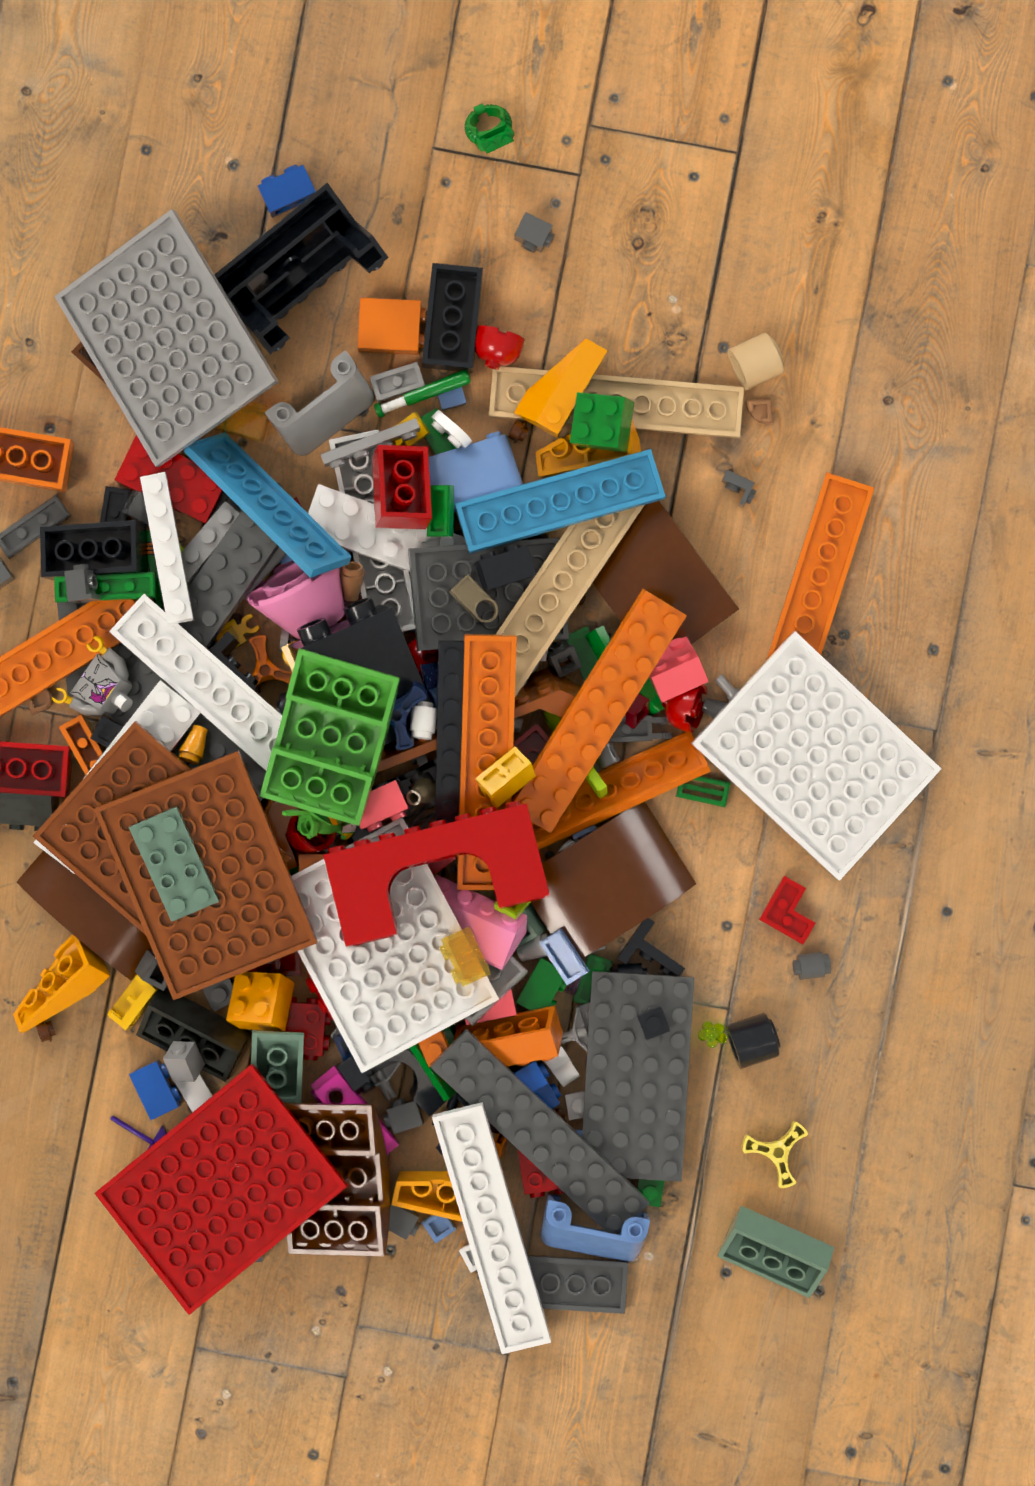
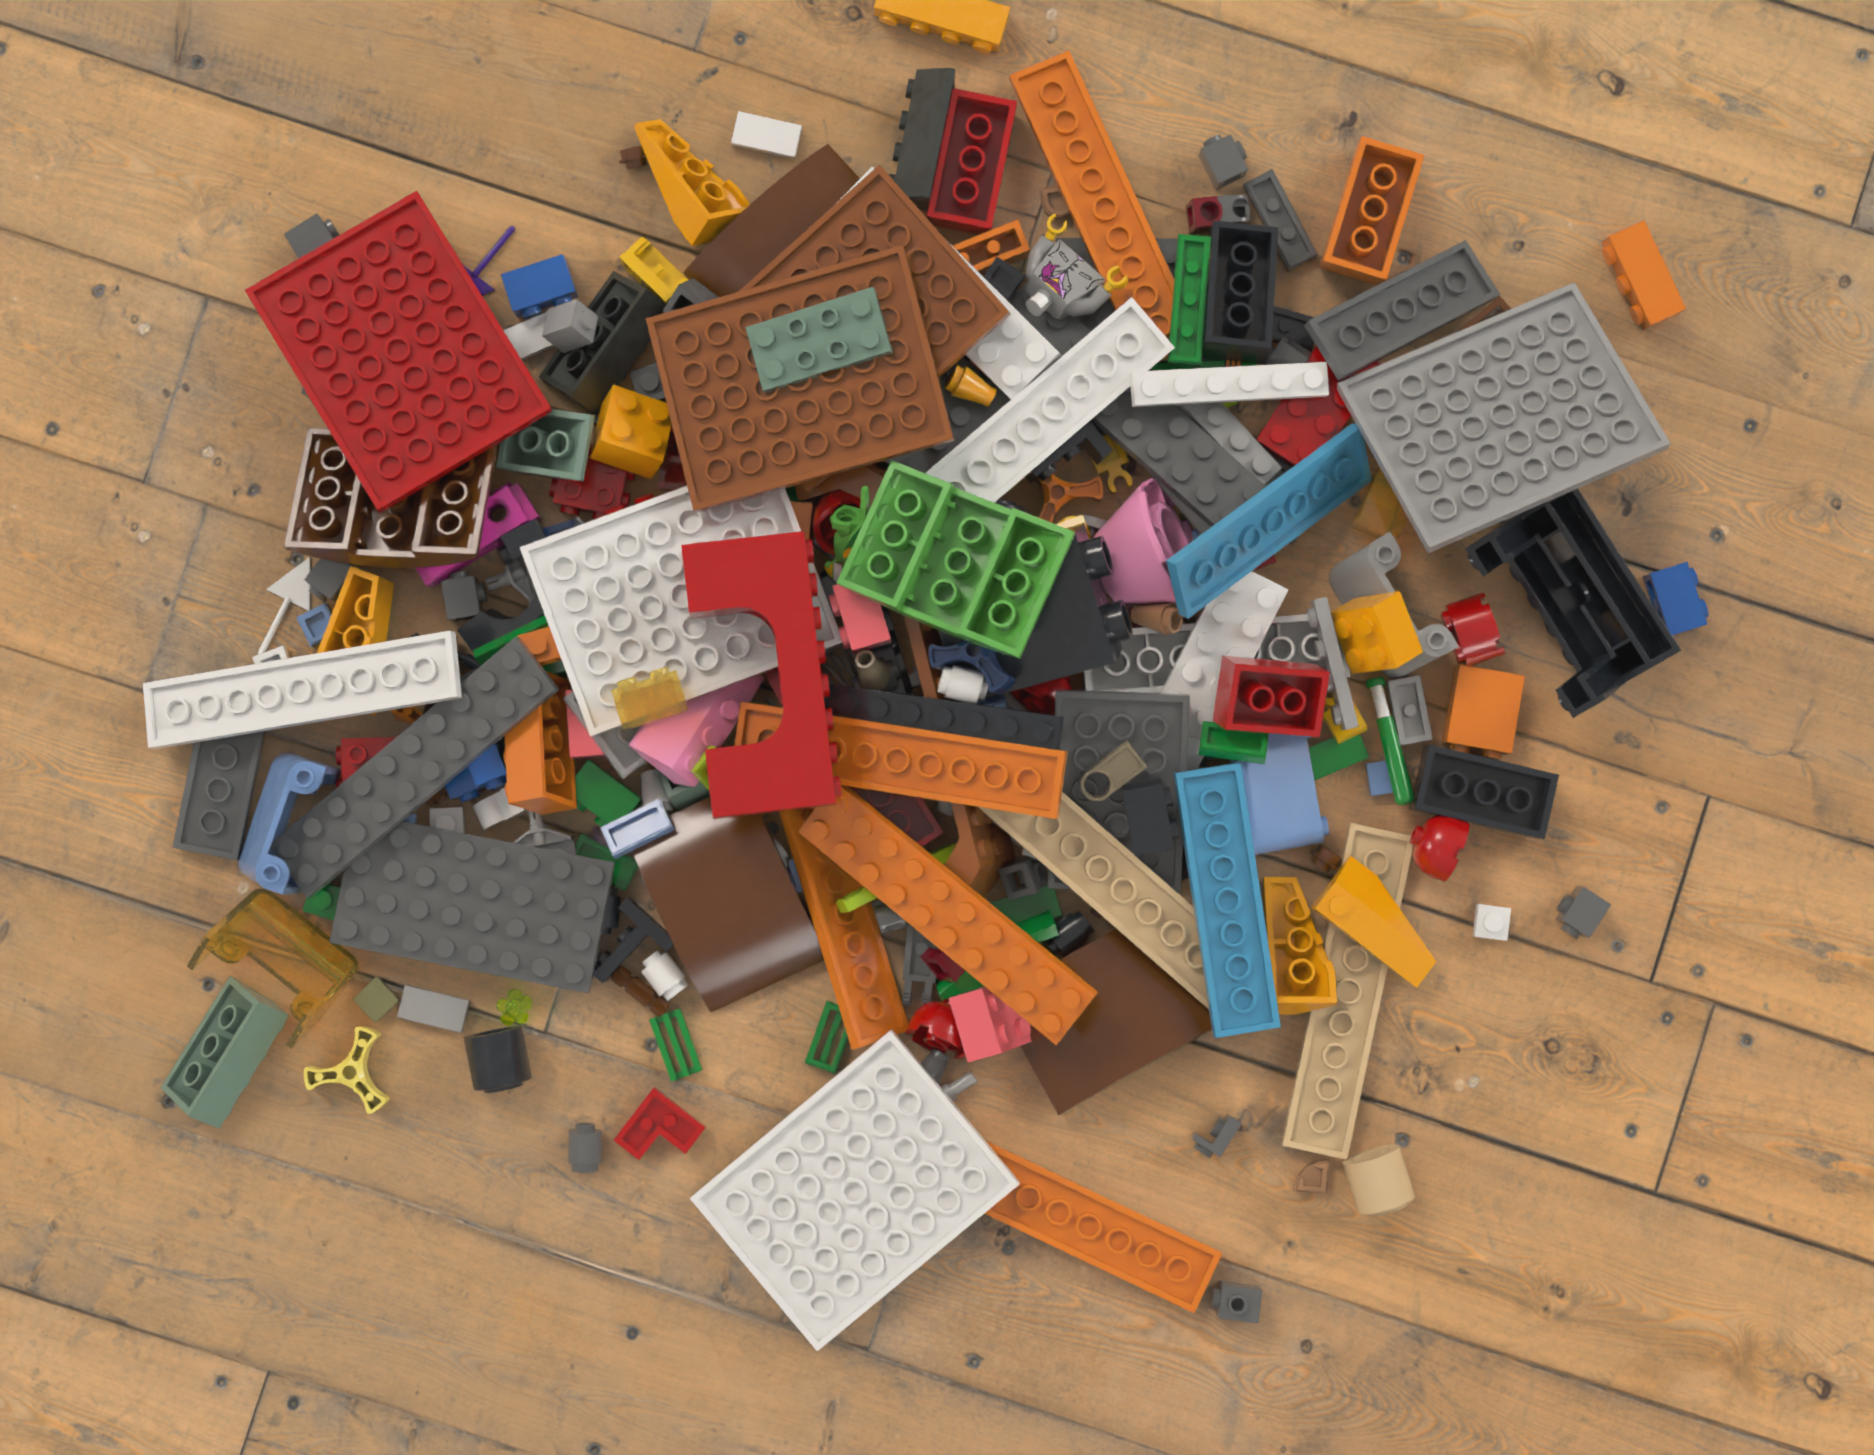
camera: 100 degrees right, 0 degrees up
(15, 930) = (766, 135): none -> white tile
(30, 570) = (1218, 208): none -> leg
(41, 245) = (1642, 275): none -> orange brick
(81, 584) = (1196, 268): dark grey brick -> none
(92, 424) = (1401, 310): none -> dark grey plate
(139, 1271) = (311, 234): none -> dark grey brick
(329, 341) = (1473, 630): none -> red brick
(342, 413) = (1376, 632): none -> light orange brick
(413, 1249) = (293, 589): none -> white piece
(430, 674) = (1022, 701): dark blue sticker -> none
(456, 434) = (1329, 777): white plate -> none
(494, 138) = (1712, 873): green piece -> none
(506, 777) = (876, 782): yellow hinge -> none
(550, 300) = (1491, 922): none -> white plate
(600, 615) = (1072, 931): none -> black brick
(602, 422) = (1323, 968): green brick -> none
(653, 1023) = (535, 932): black plate -> none
(672, 922) = (664, 975): none -> white brick
(687, 939) = (640, 991): none -> reddish brown axle
(692, 1212) = (286, 948): none -> clear yellow windscreen
(720, 1141) = (376, 999): none -> olive tile
(721, 1096) = (433, 1008): none -> light grey tile
(743, 897) = (685, 1071): none -> green tile
(861, 456) = (1237, 1301): none -> dark grey brick

